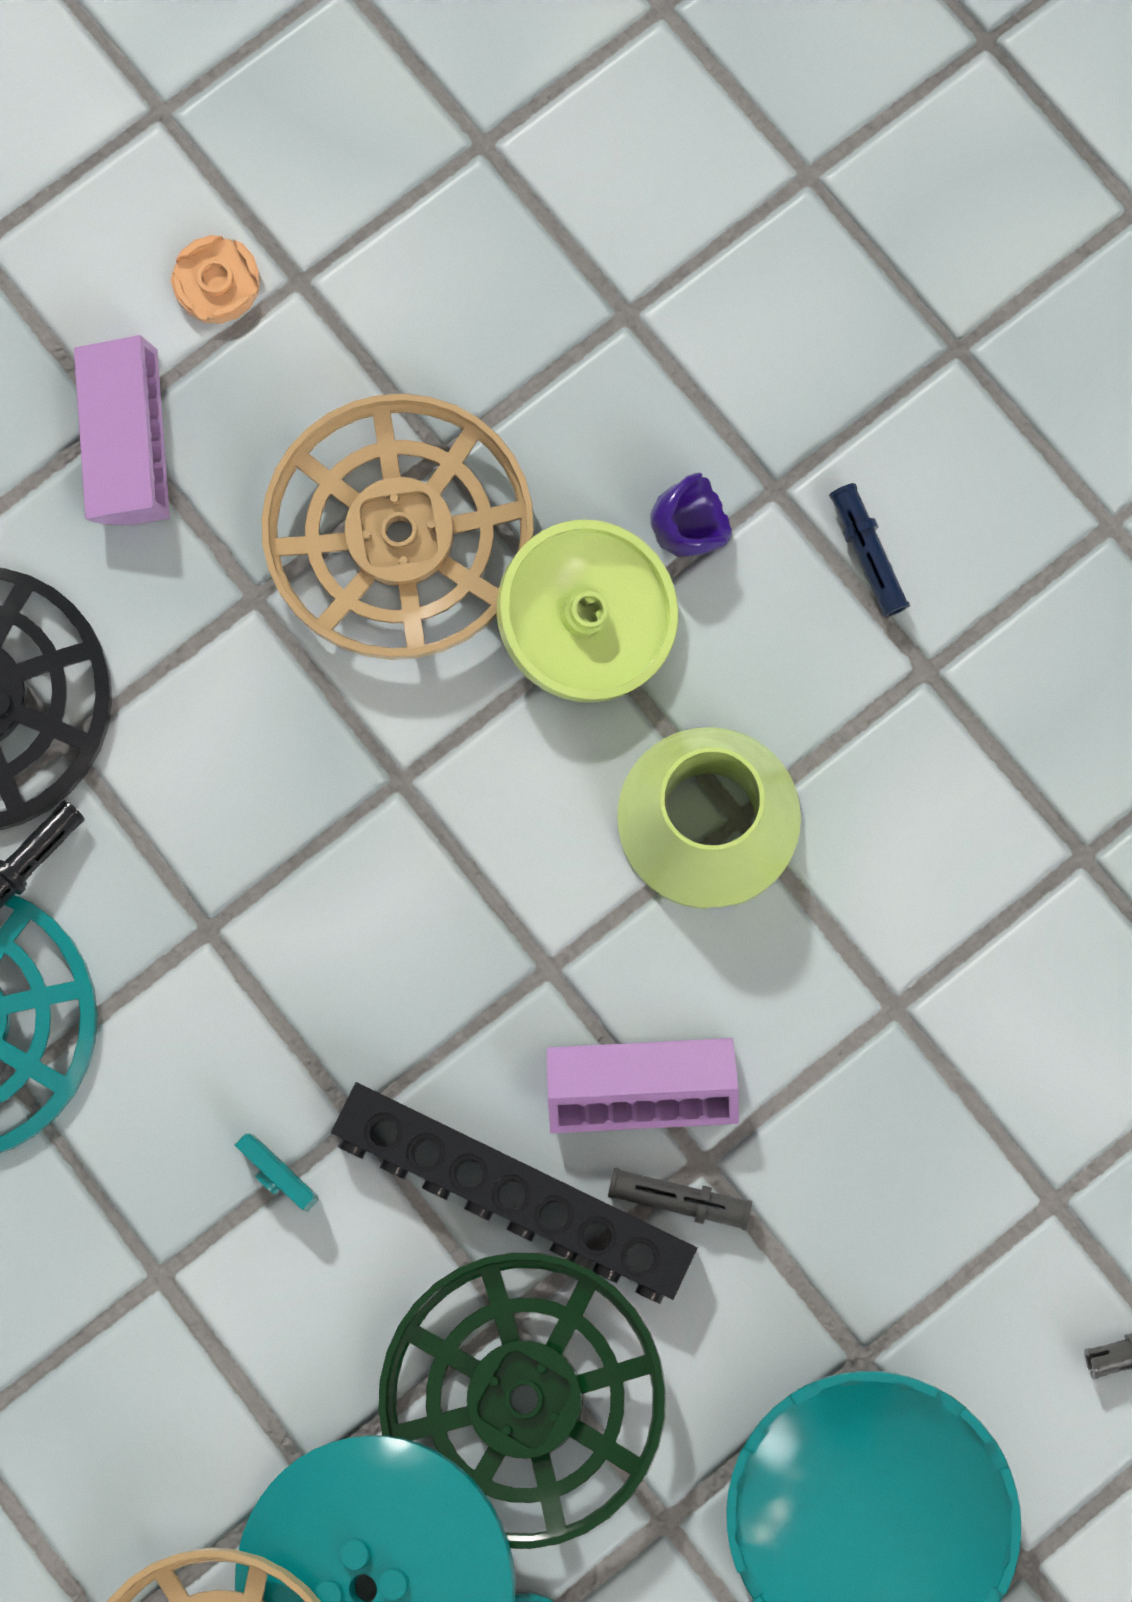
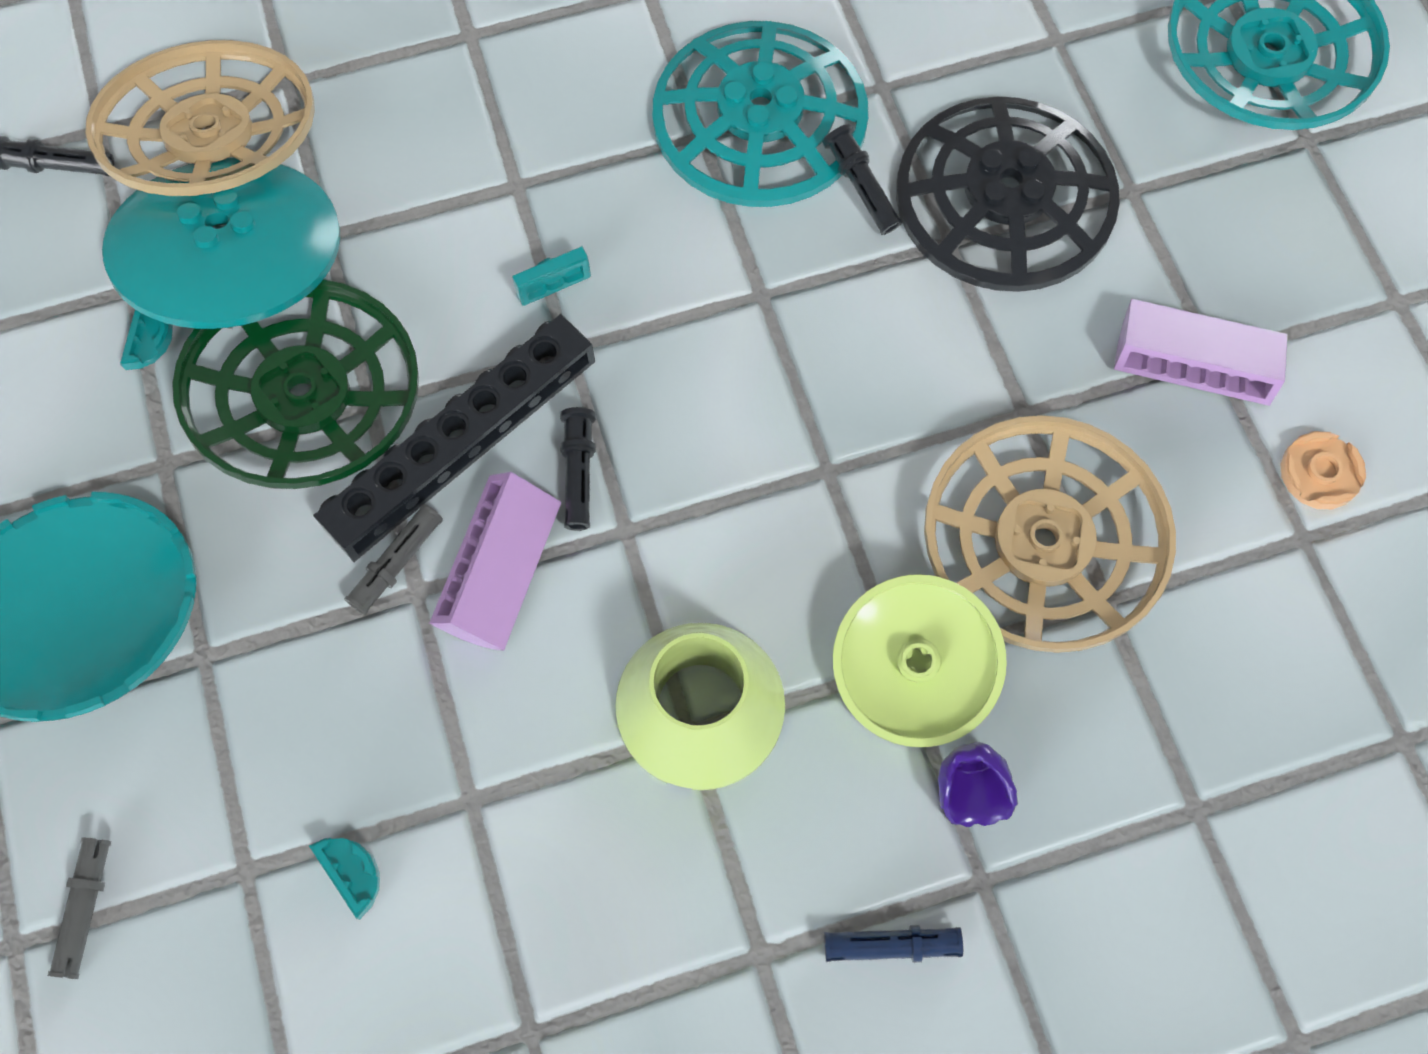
camera: 105 degrees right, 10 degrees down
(481, 1053) = (577, 450): none -> black pin
(1012, 1091) = (351, 872): none -> teal plate

